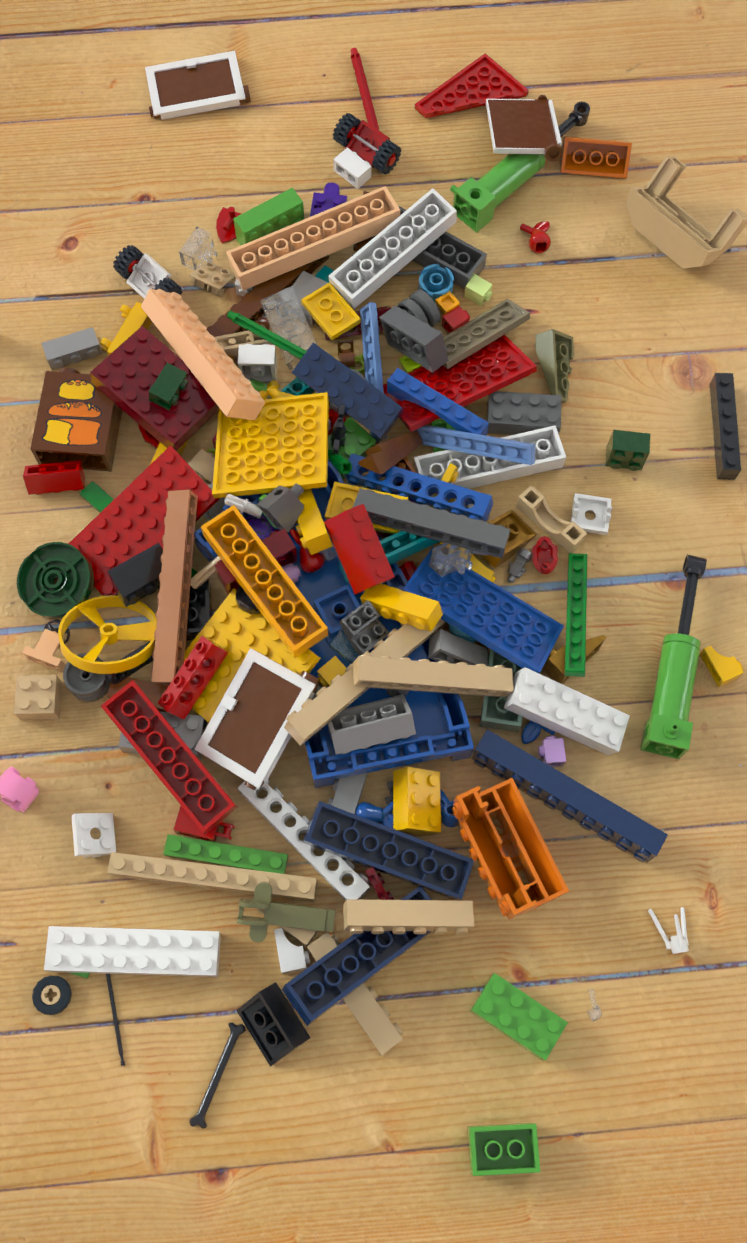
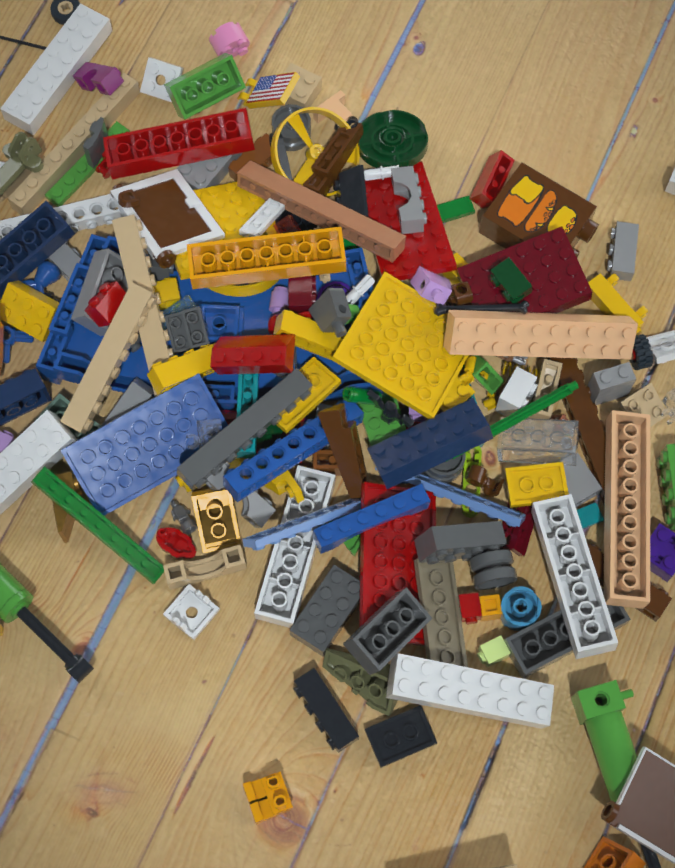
camera: 120 degrees right, 0 degrees up
(58, 712) = (269, 90): none -> tile
(82, 782) = (205, 86): none -> bright green brick
(98, 566) = (378, 173): none -> white axle
(102, 535) = (405, 185): none -> light grey arch
(109, 612) = (333, 159): none -> reddish brown wedge
(126, 910) = (102, 77): none -> magenta arch
(192, 677) = (231, 187): red brick -> none
(199, 437) = (458, 297): none -> reddish brown leg
(199, 845) = (94, 145): none -> dark grey slope
(203, 454) = (434, 288): none -> lavender torso
(208, 297) = (611, 383): none -> light grey brick
(209, 605) = (287, 225): none -> clear red brick
(213, 630) = (262, 219): none -> white tile
(221, 433) = (520, 307): none -> black piece
(260, 761) = (128, 199): none -> reddish brown tile
(386, 701) = (105, 304): none -> red brick
(522, 347) = (387, 631): none -> dark grey brick
(525, 283) = (470, 691): none -> white brick
(539, 240) = (522, 751): red piece -> none
(582, 322) = (400, 736): none -> black plate
(599, 378) = (326, 710): none -> black brick
(627, 450) = (229, 680): dark green brick -> none
(688, 385) = (277, 797): none -> light orange hips
(725, 426) = (201, 802): black brick -> none

